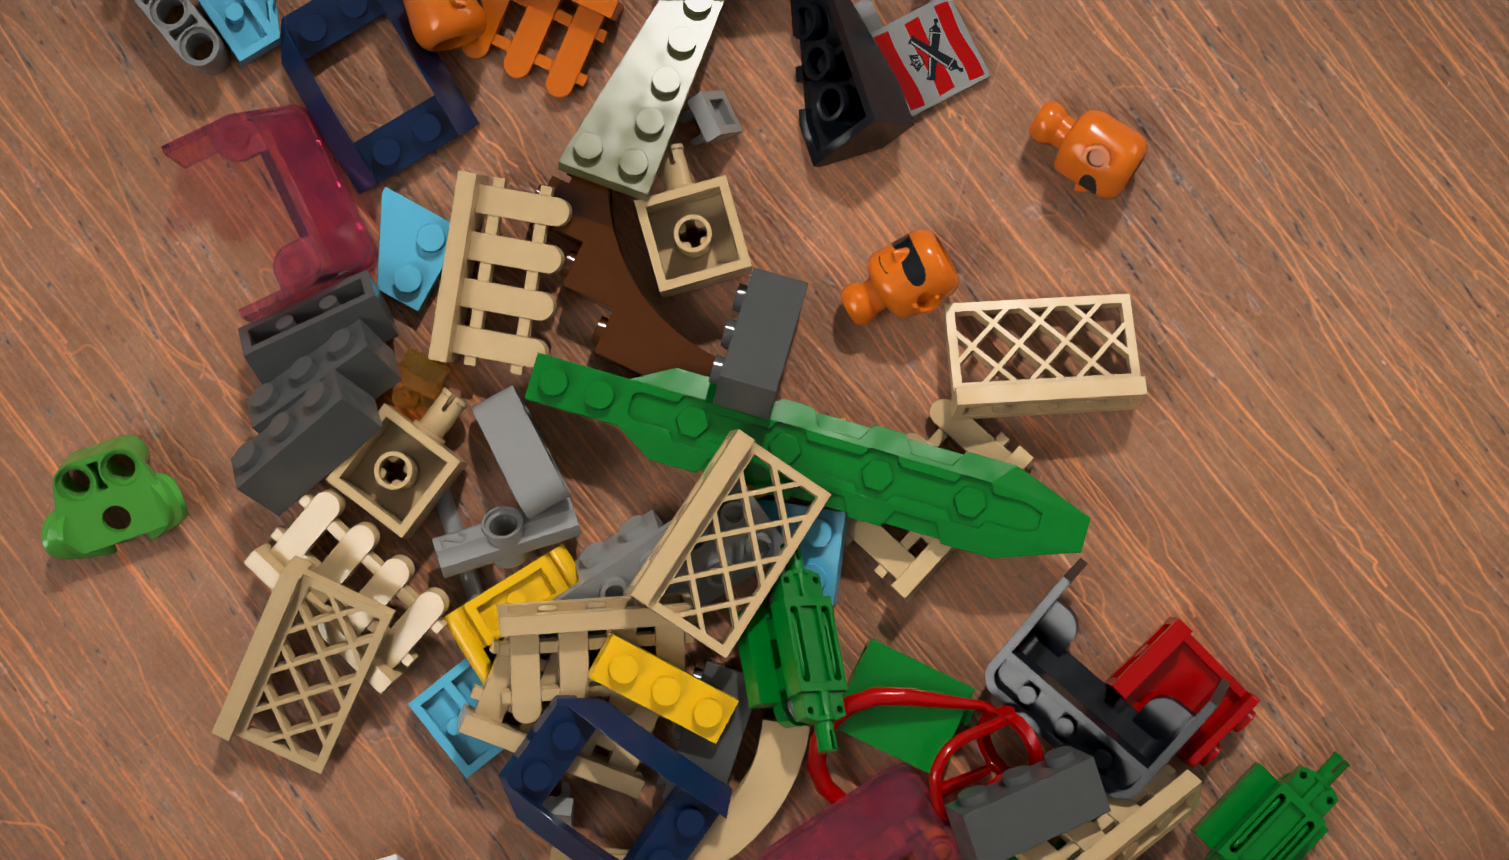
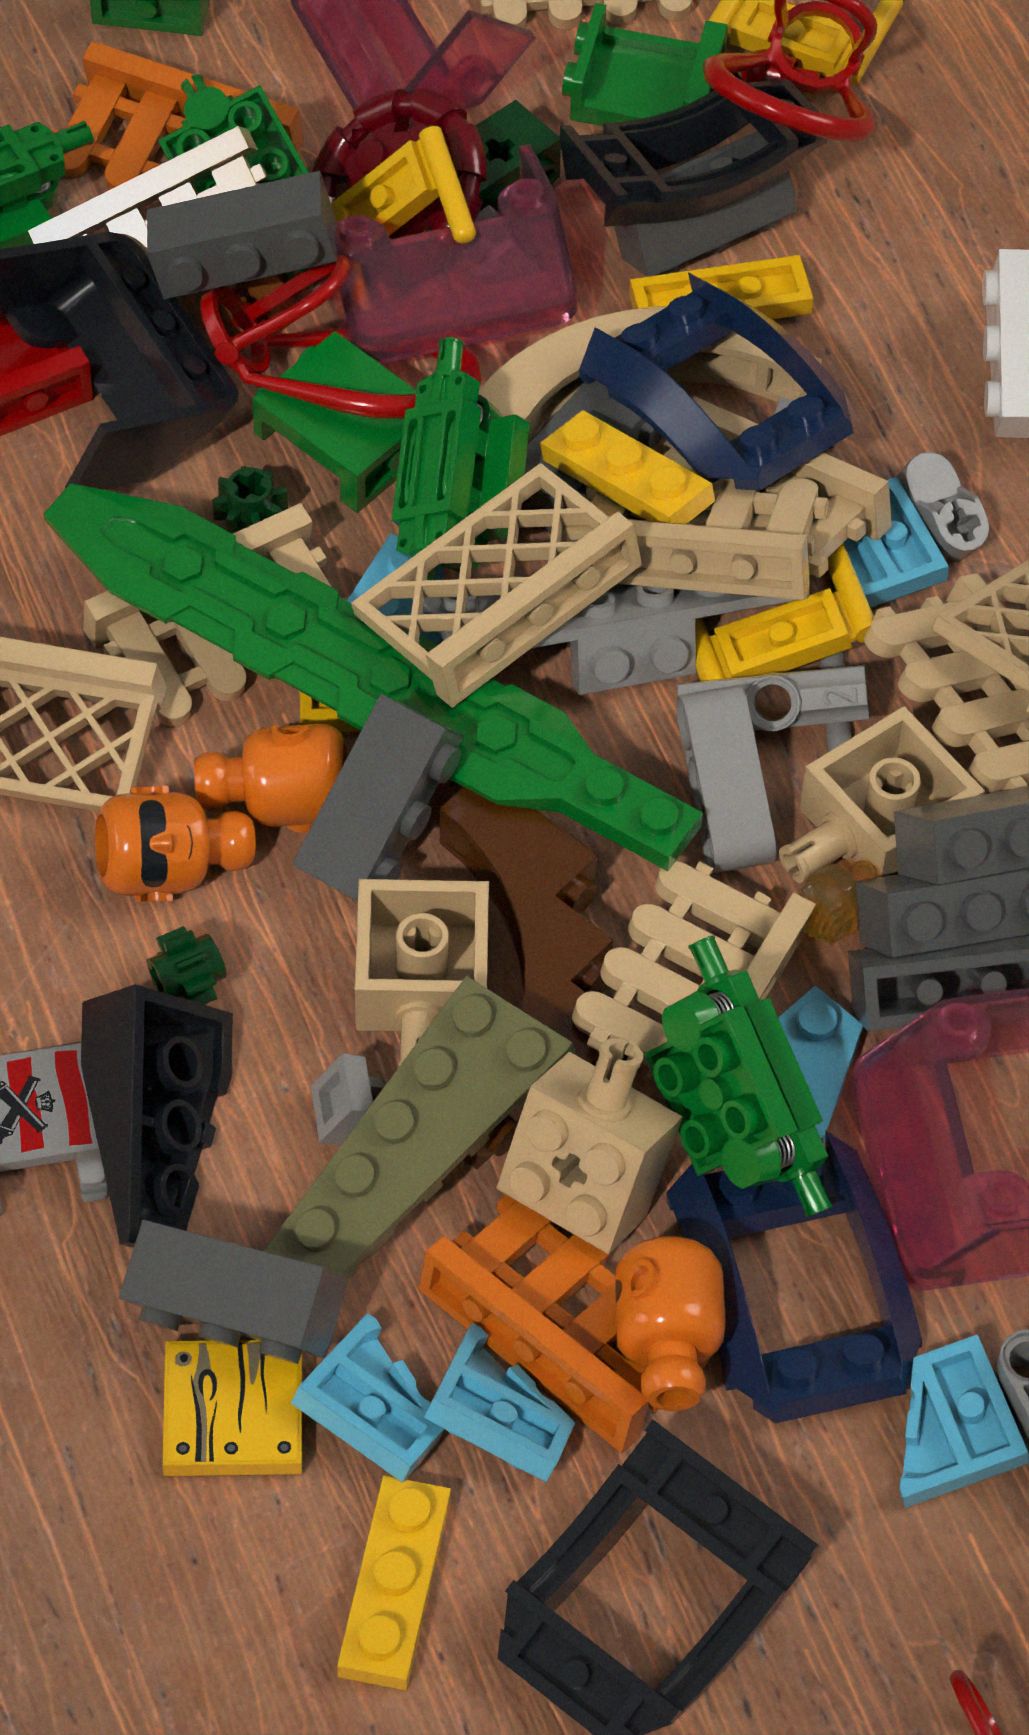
camera: 165 degrees left, 30 degrees down
(410, 752) = (946, 508): none -> light grey piece
(434, 161) = (738, 1084): none -> green piece
(528, 102) = (590, 1146): none -> tan brick
(841, 360) = (279, 776): none -> orange piece
(855, 184) = (187, 966): none -> dark green gear
(952, 616) = (248, 498): none -> dark green gear

